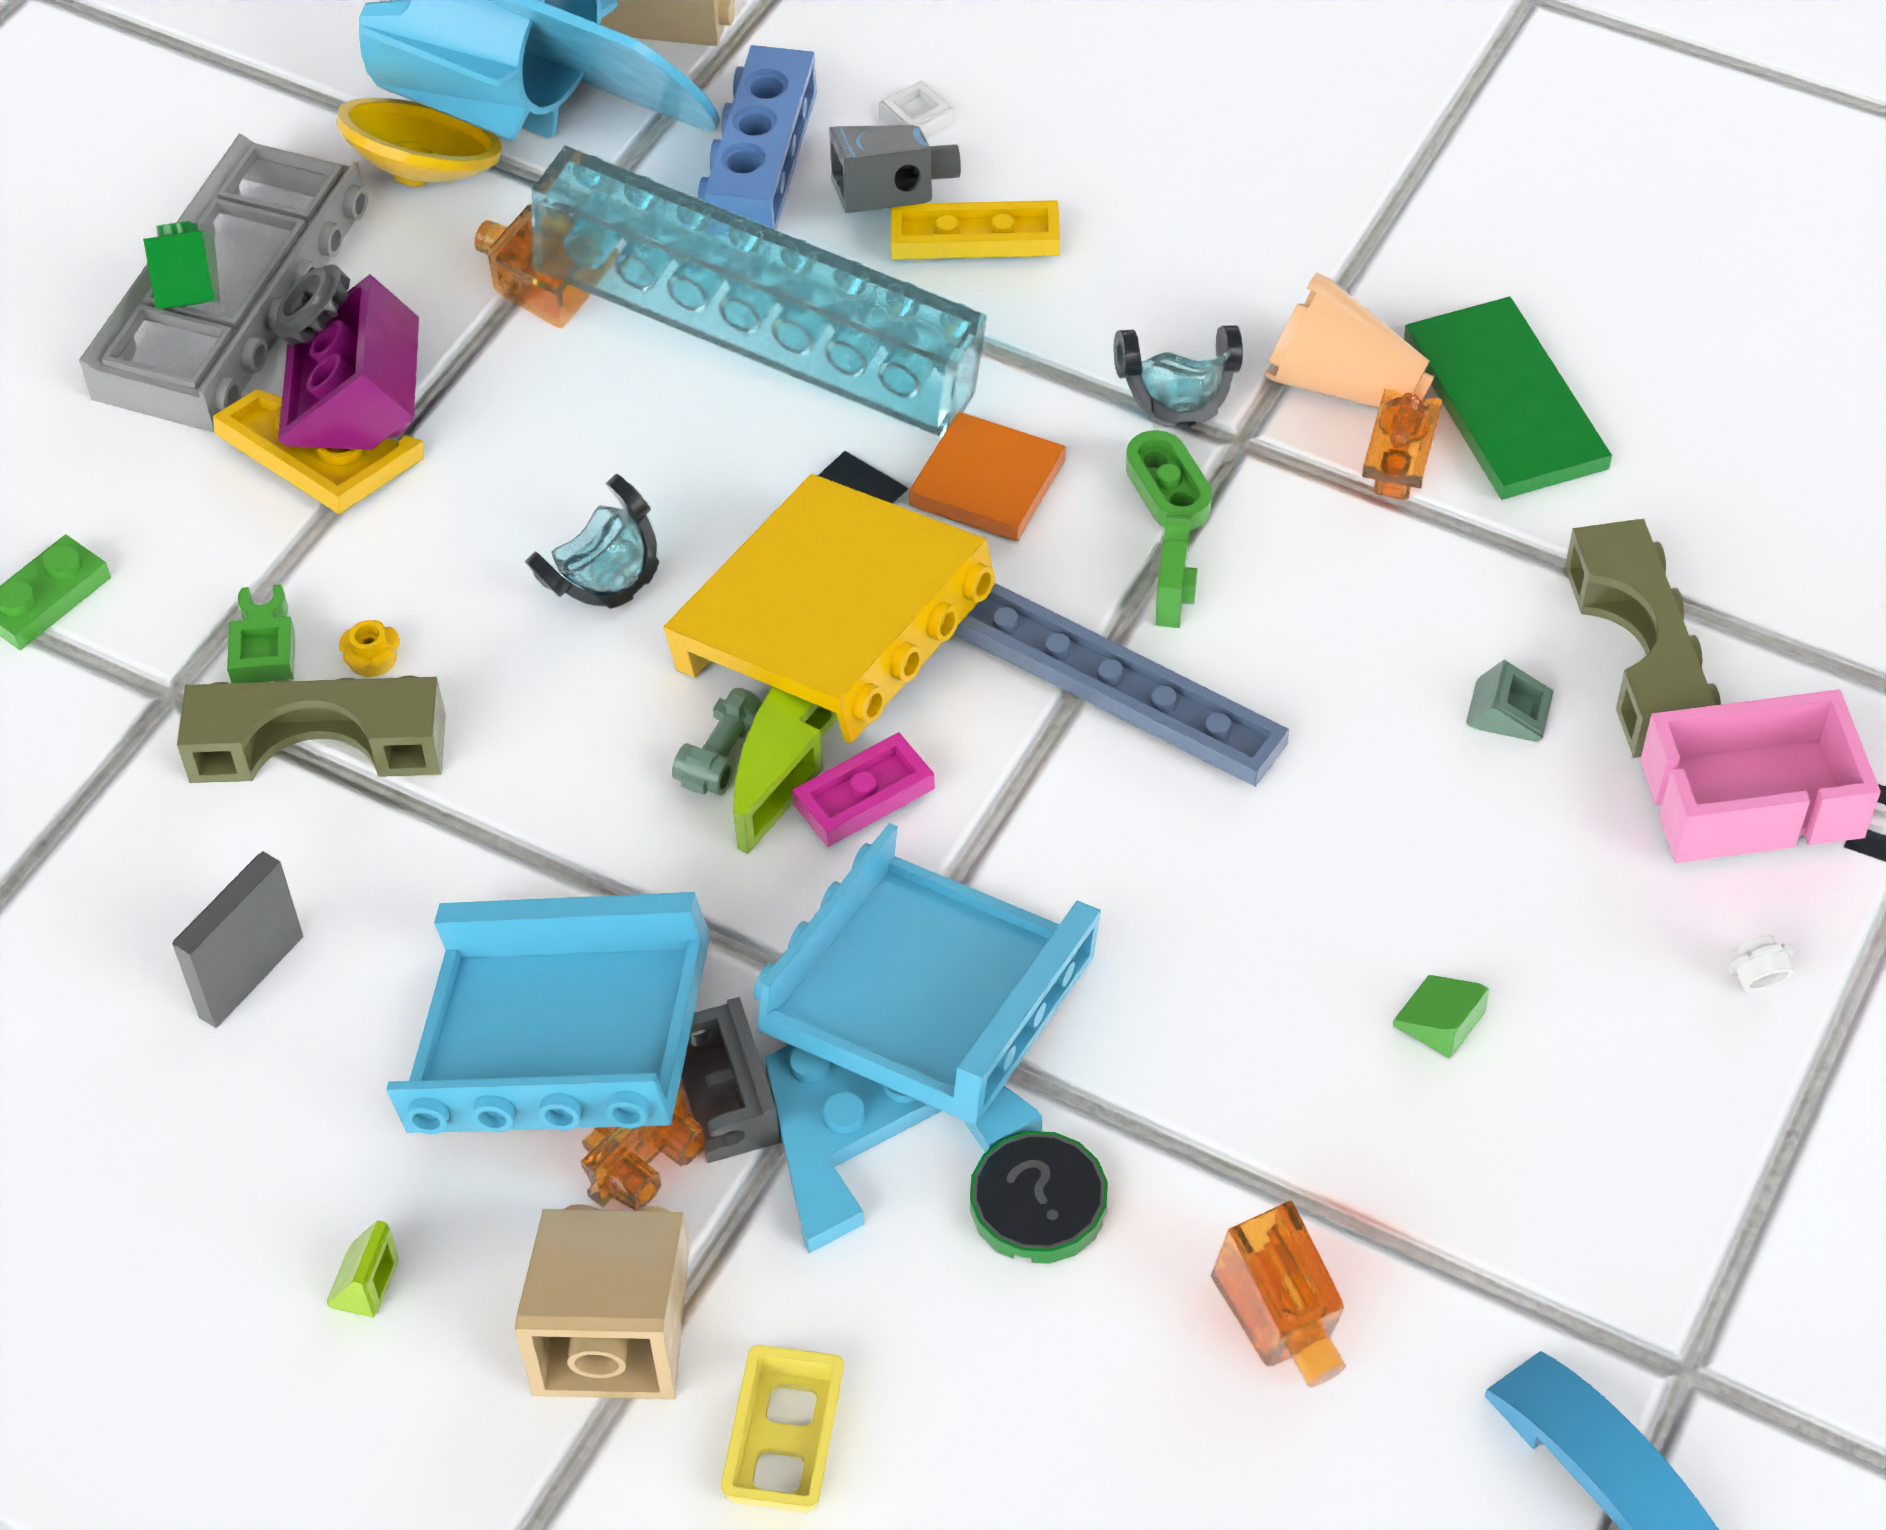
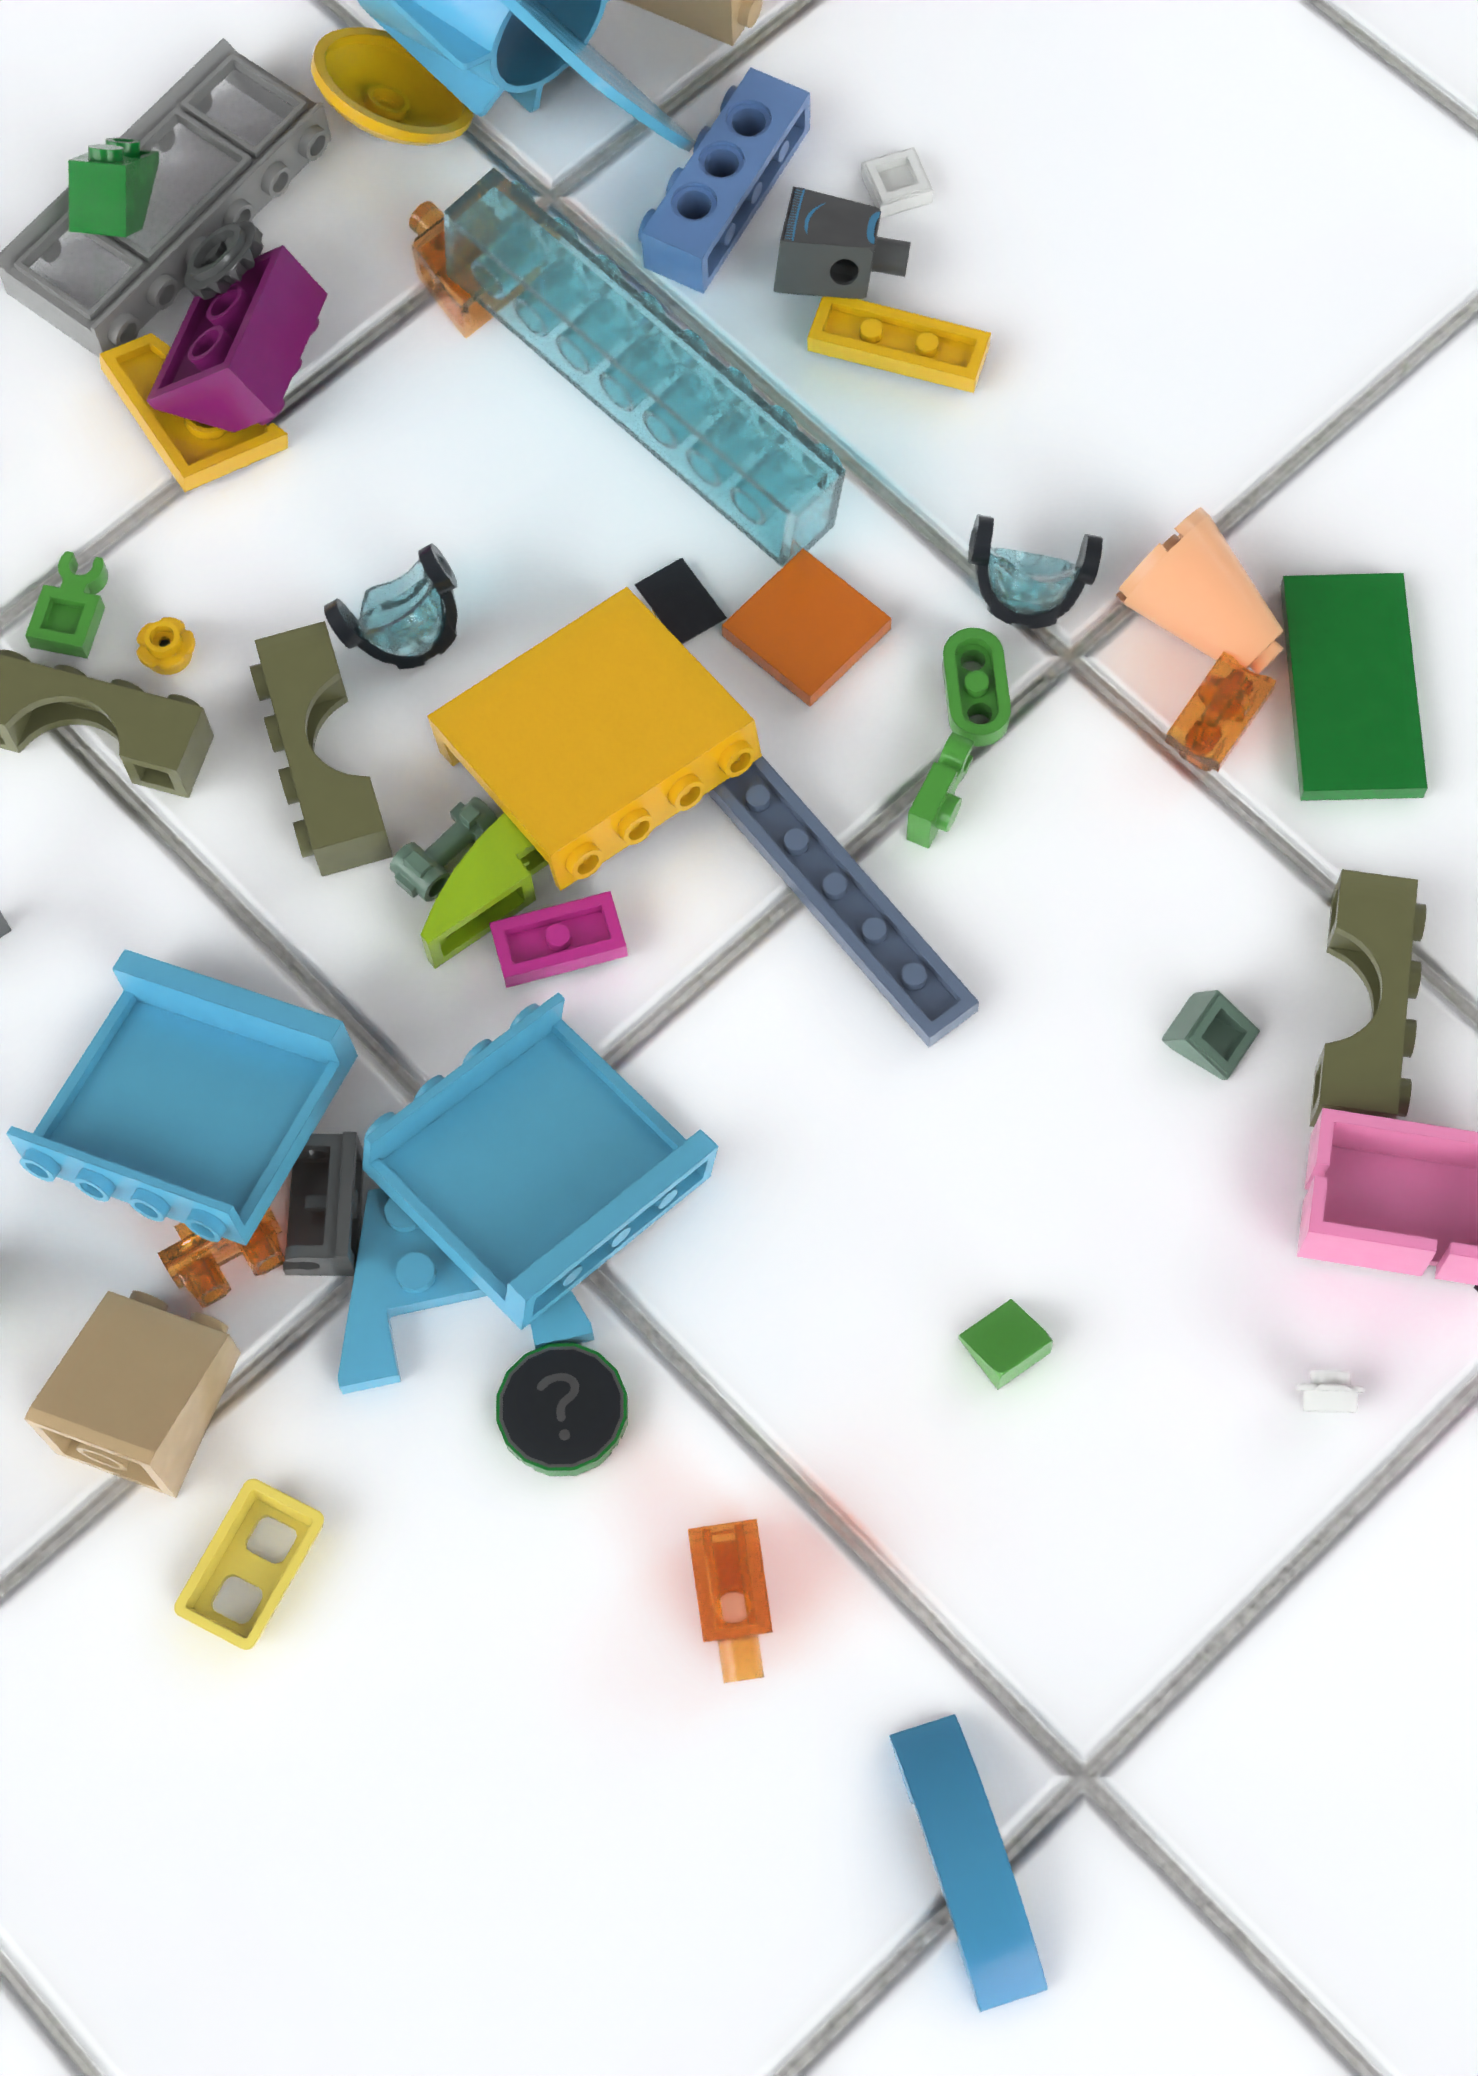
camera: 20 degrees right, 15 degrees up
(601, 738) = (338, 808): none -> olive arch

